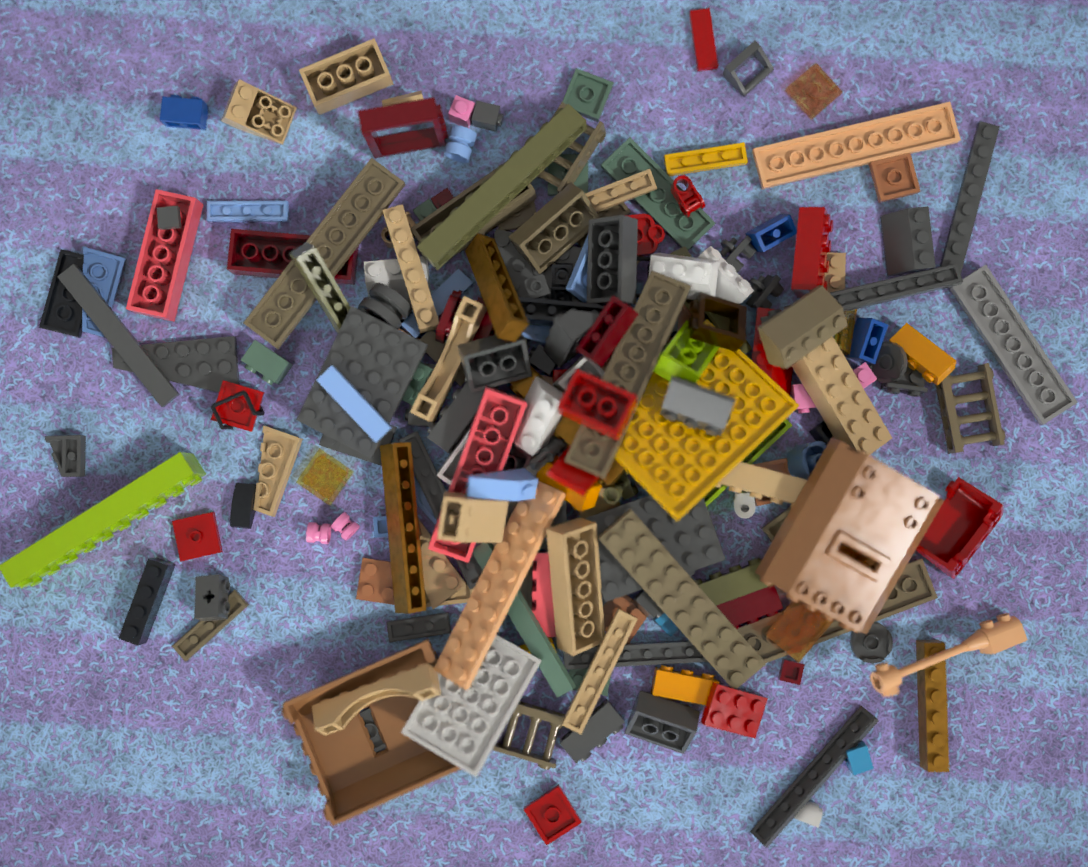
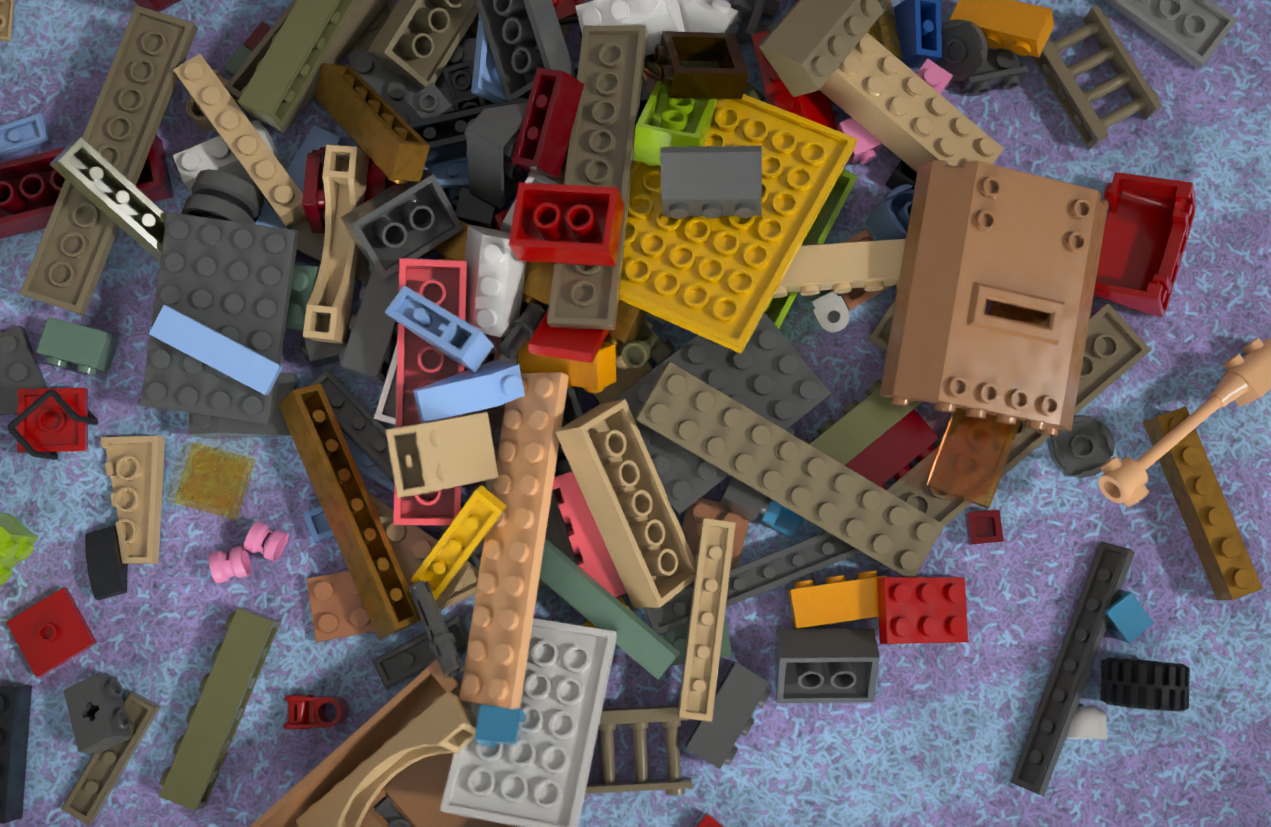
camera: 20 degrees left, 5 degrees down
(285, 619) = (219, 708): none -> olive brick
(337, 640) = (308, 711): none -> red piece
(433, 622) = (440, 639): none -> dark grey pin
(452, 695) = (498, 725): none -> dark azure panel
(464, 573) = (460, 540): none -> yellow plate
(496, 441) = (440, 328): none -> light blue slope
(853, 804) = (1145, 684): none -> black tyre

